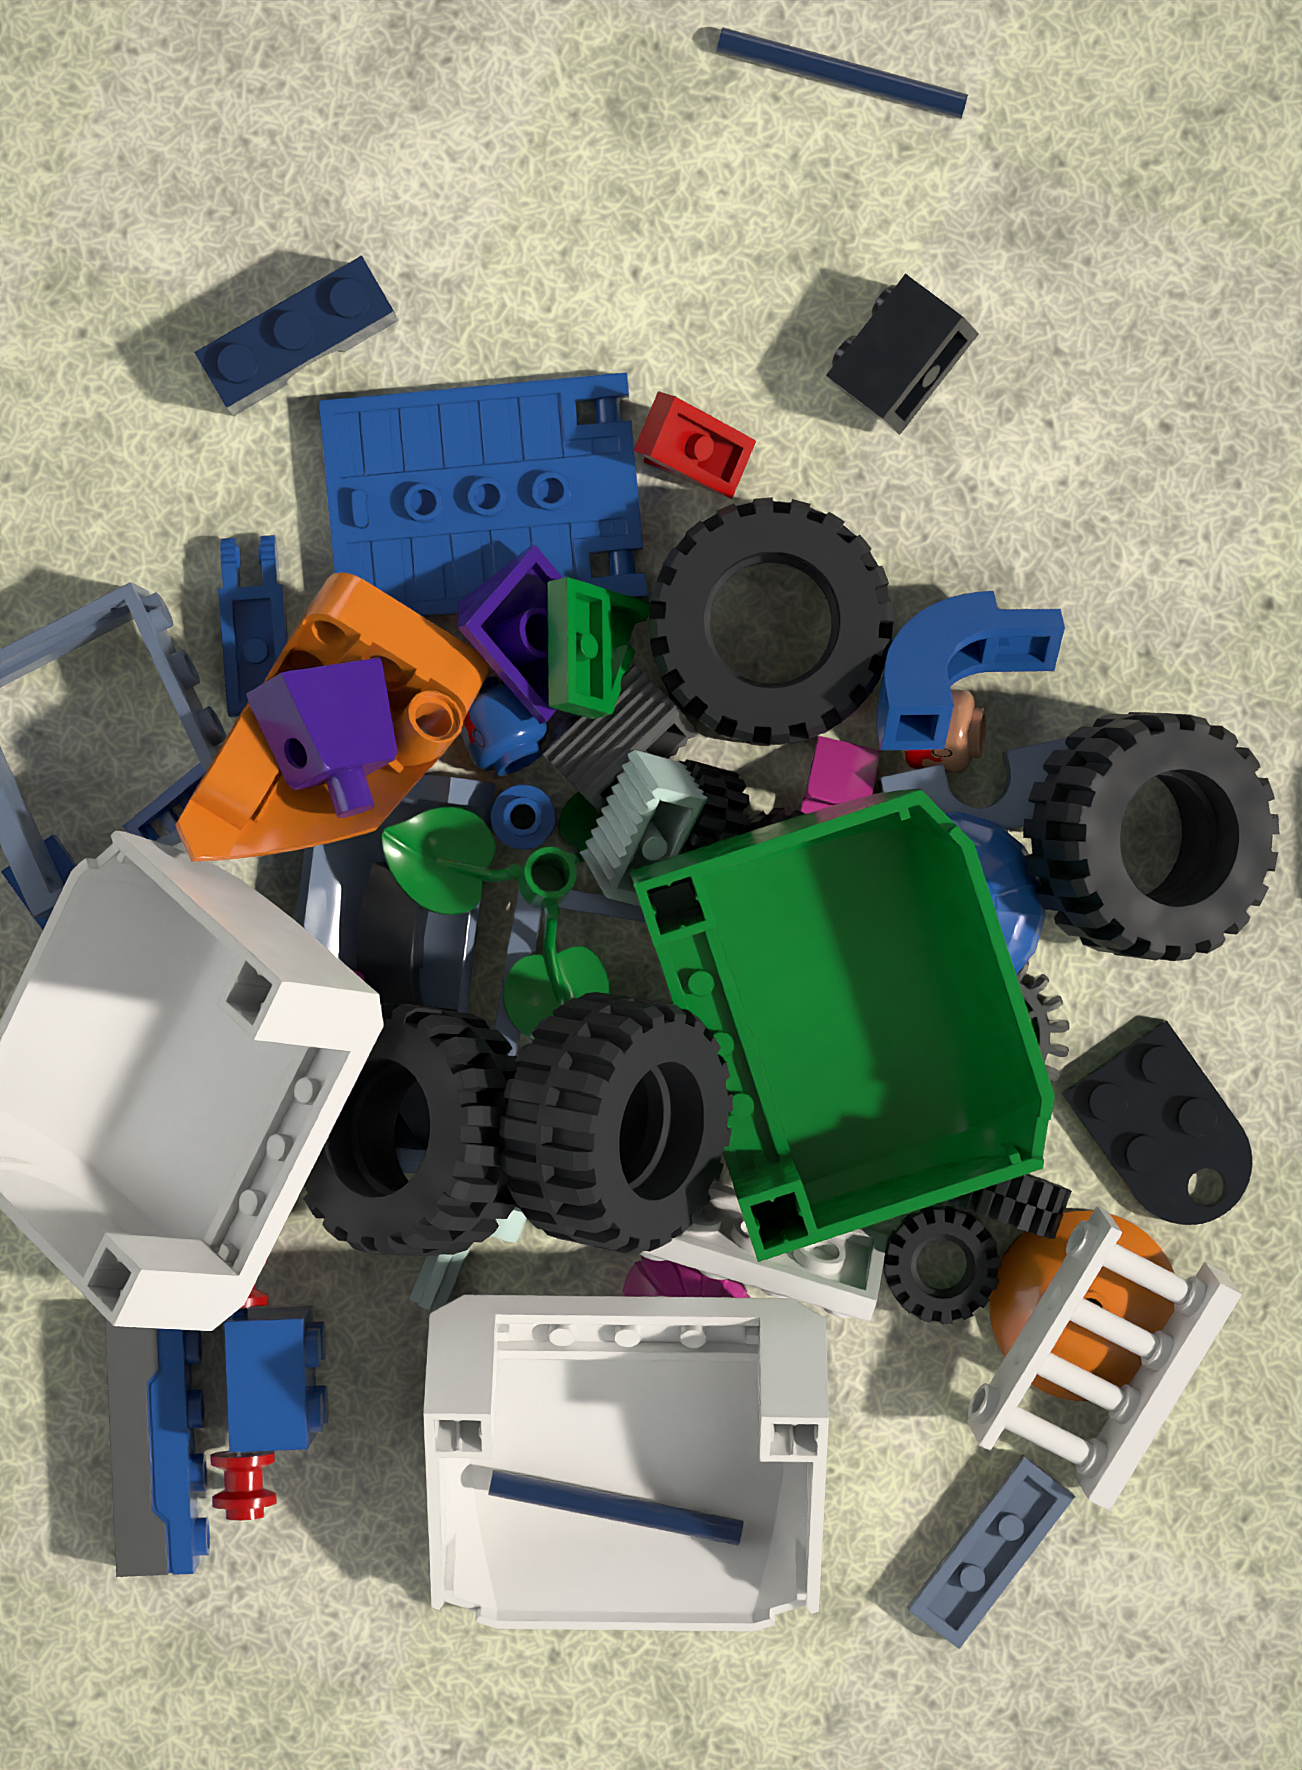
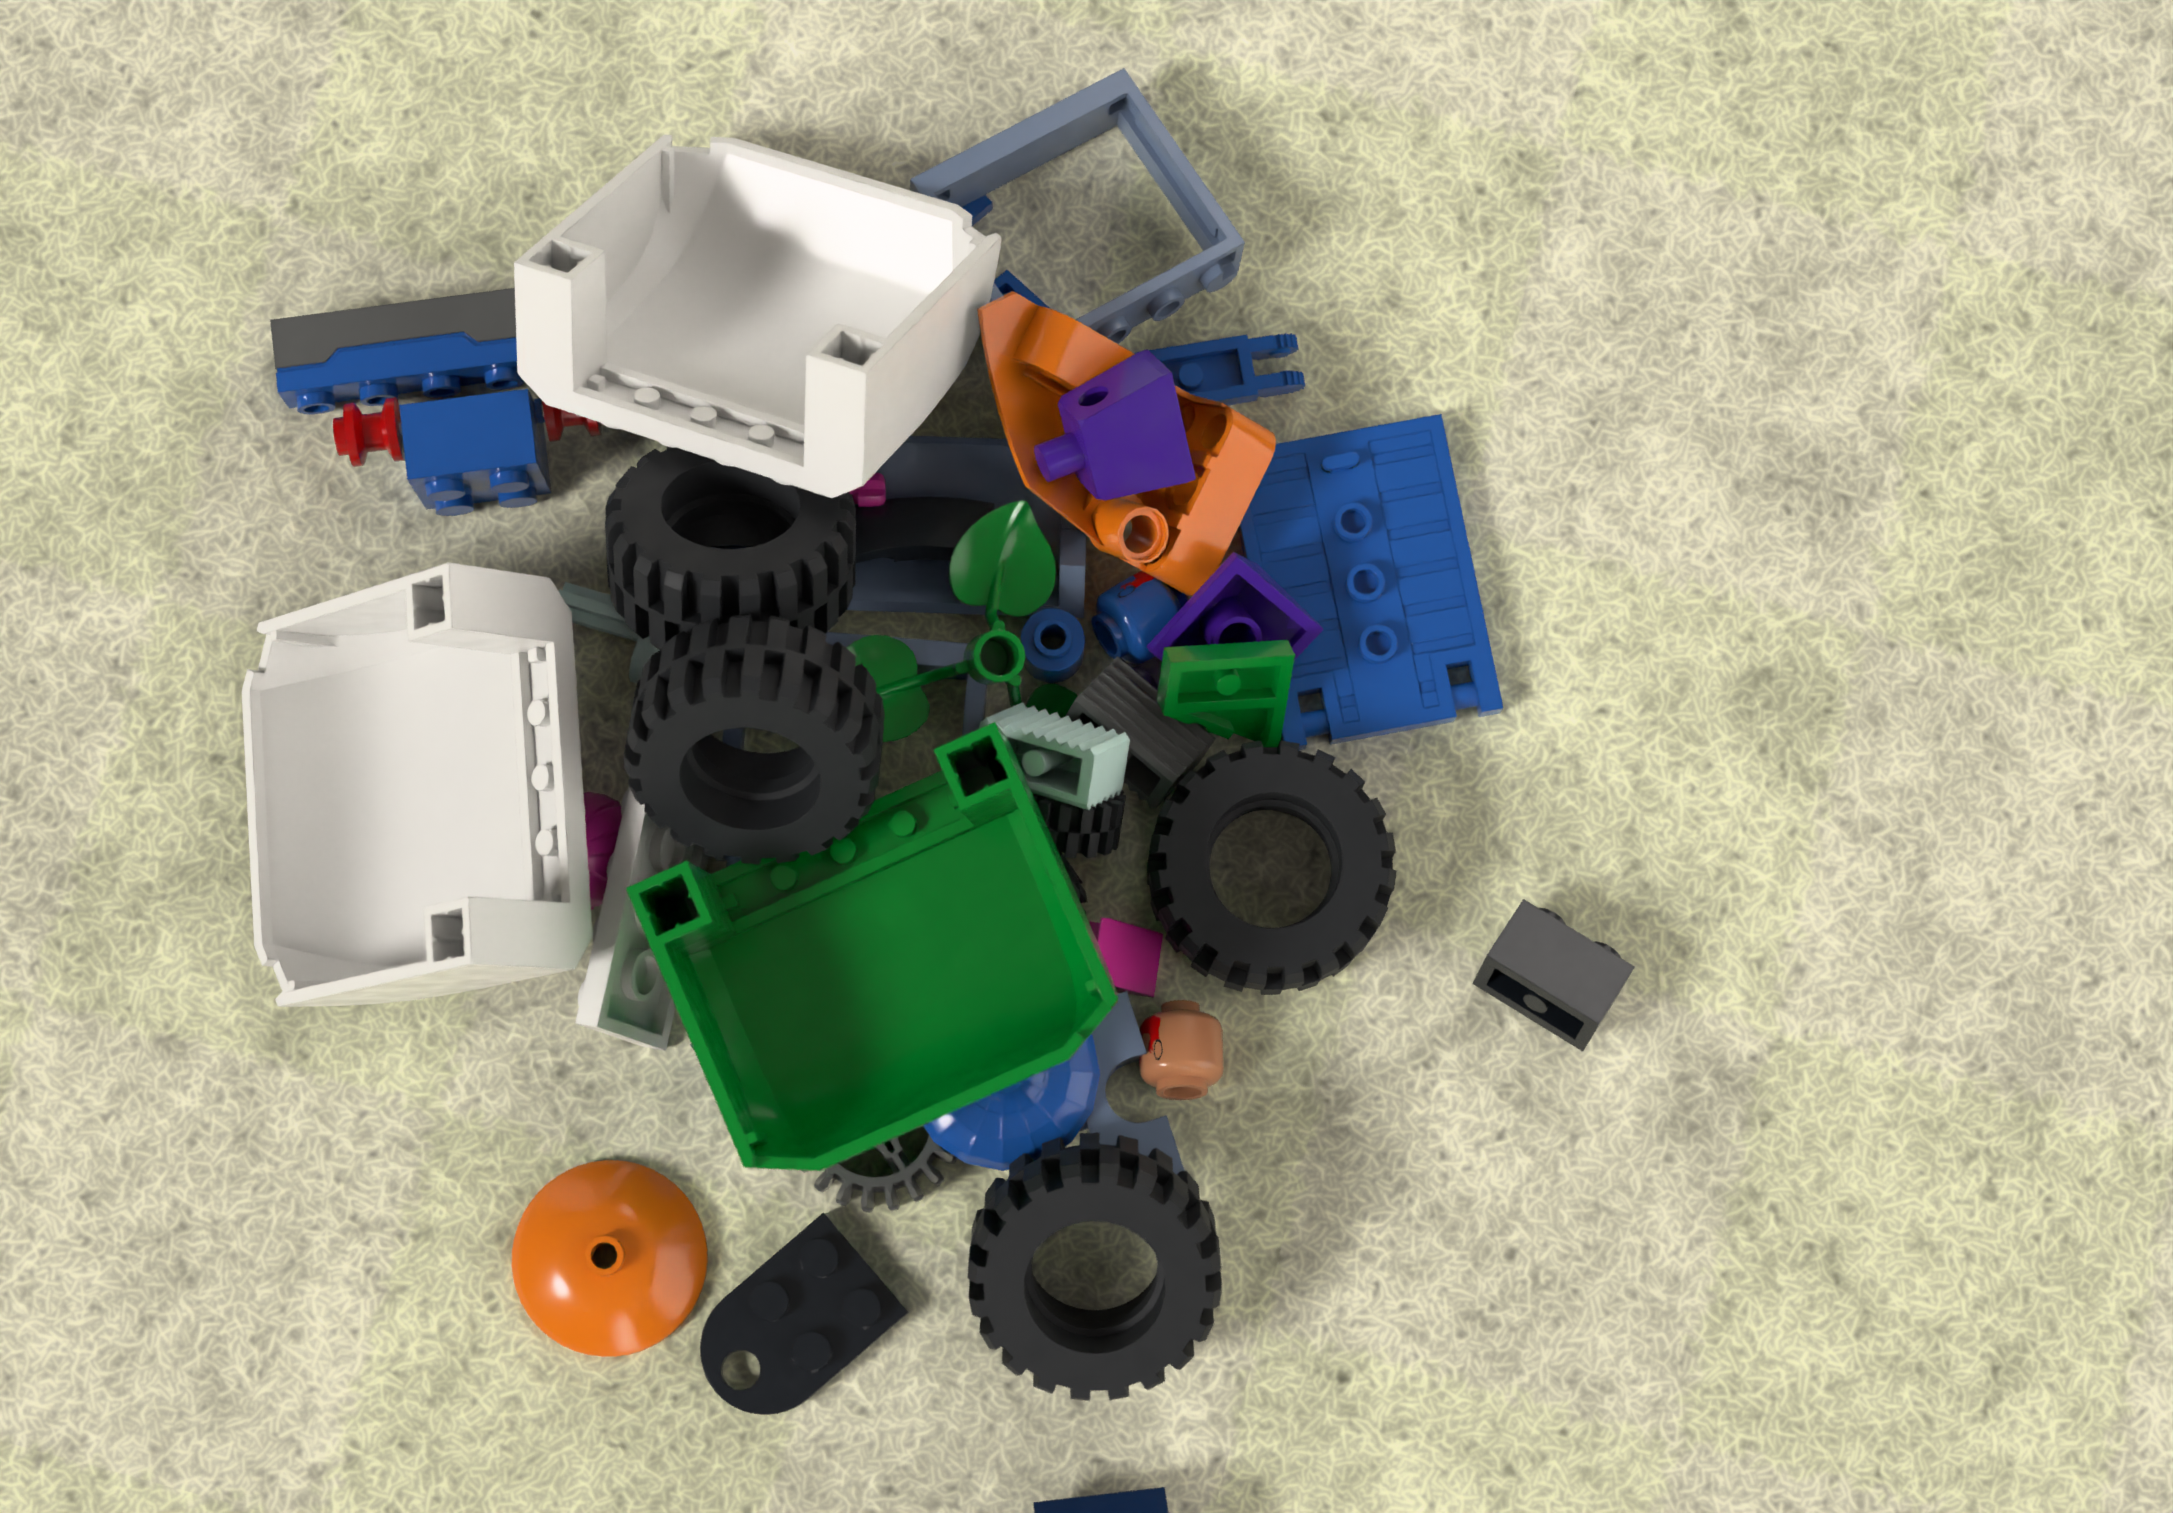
camera: 80 degrees right, 10 degrees down
(294, 333) = (1524, 409): dark blue arch -> none
(615, 1507) = (370, 801): dark blue bar -> none
(693, 445) = (1438, 778): red slope -> none
(842, 73) = (1825, 895): dark blue bar -> none
(948, 644) = (1265, 1045): blue arch -> none
(949, 1303) = (611, 1077): black tyre -> none
(990, 1551) = (351, 1183): sand blue plate -> none
(1021, 1202) = (710, 1169): black tyre -> none
(1134, 1409) = (506, 1310): white fence -> none

